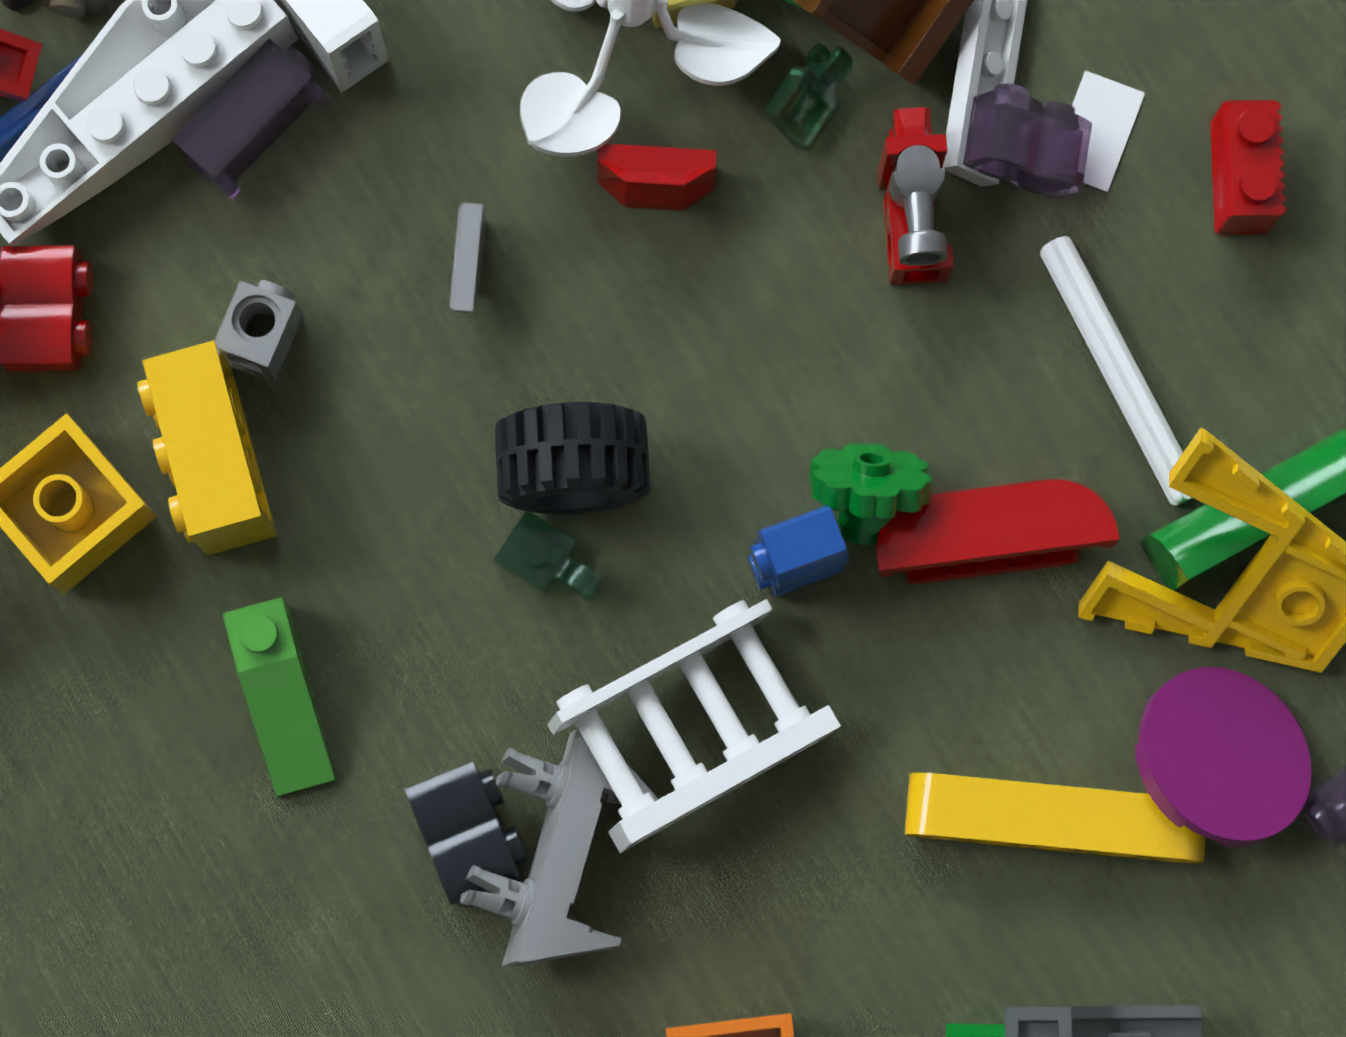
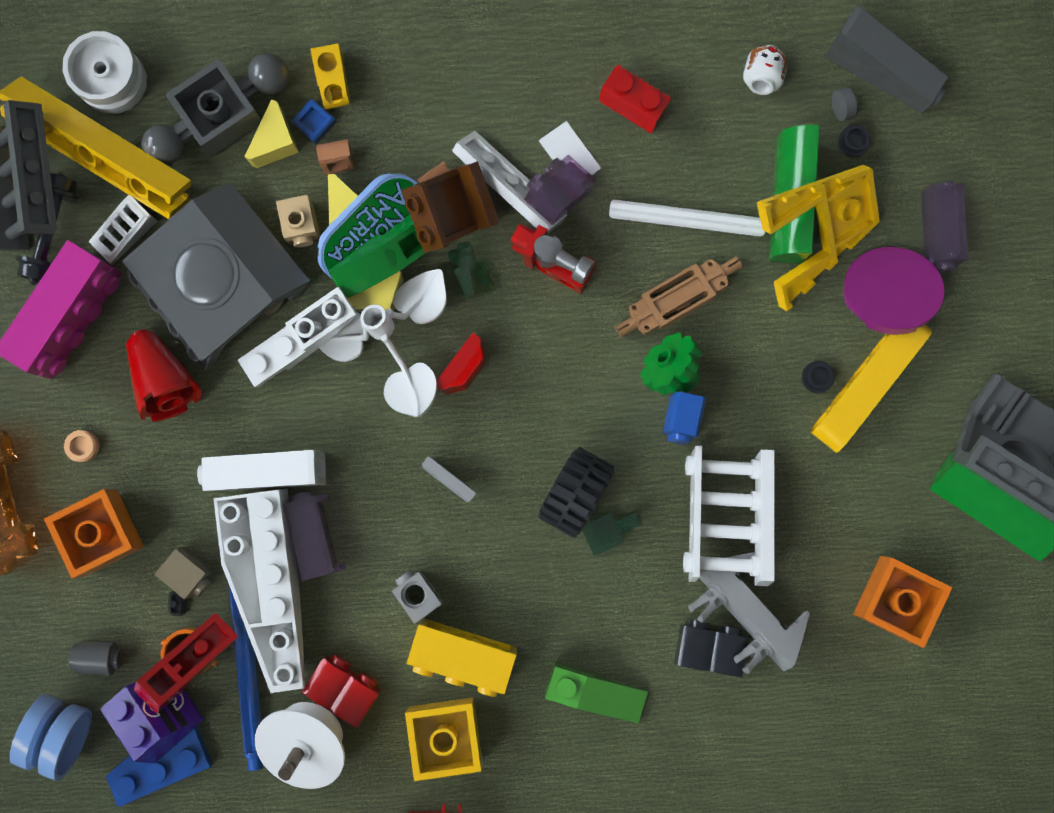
camera: 50 degrees left, 5 degrees up
(985, 427) = (650, 312): none -> medium nougat piece
(995, 531) = (728, 320): red brick -> none
(1006, 731) = (818, 377): none -> black plate

